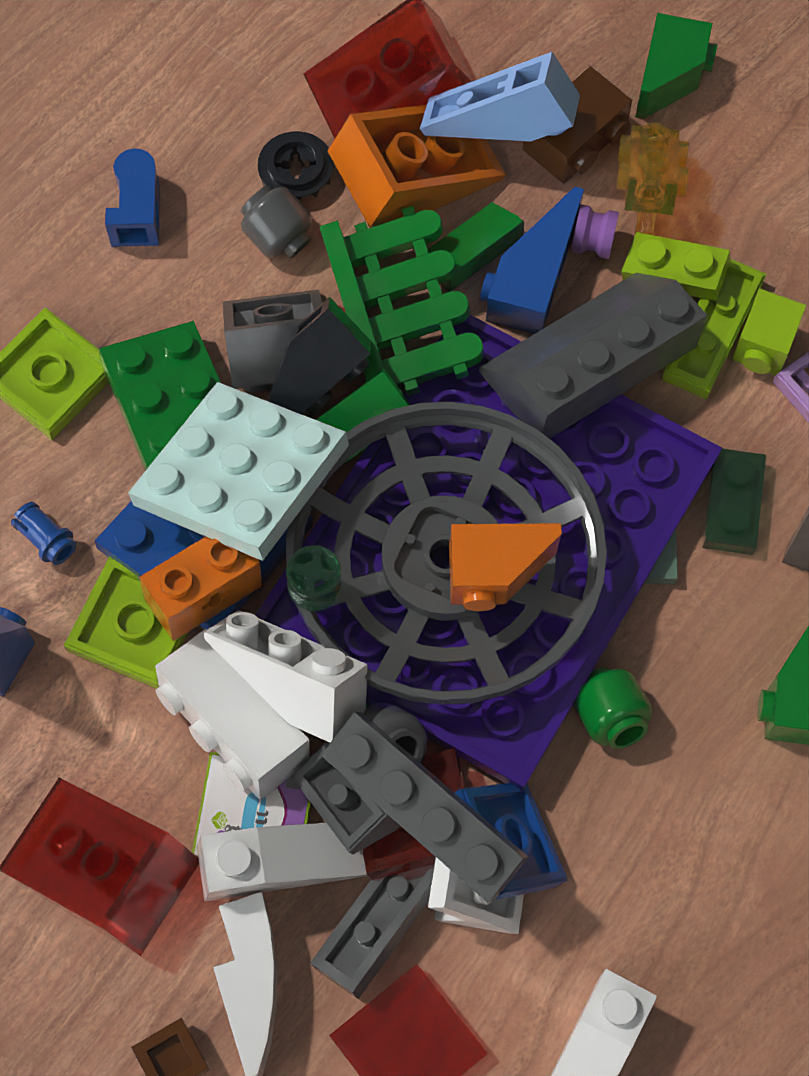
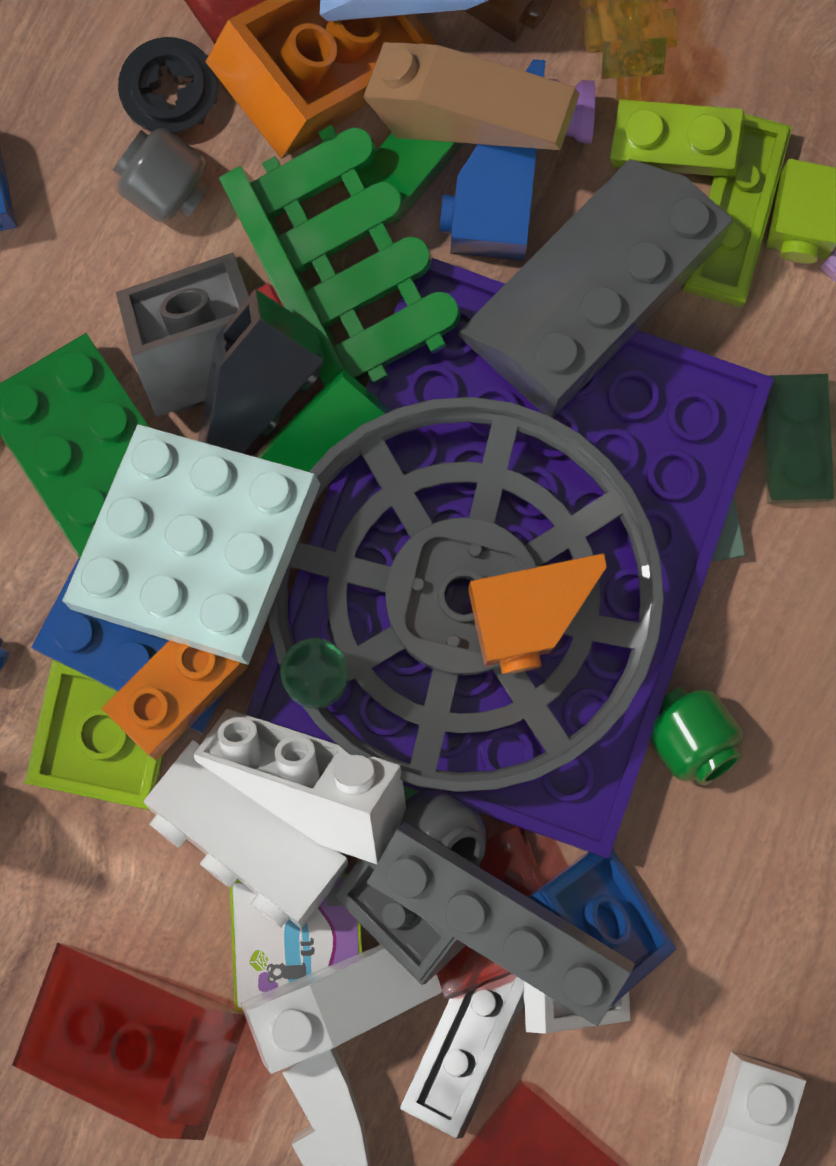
camera: 10 degrees left, 15 degrees up
(513, 200) = (466, 99): none -> medium nougat slope

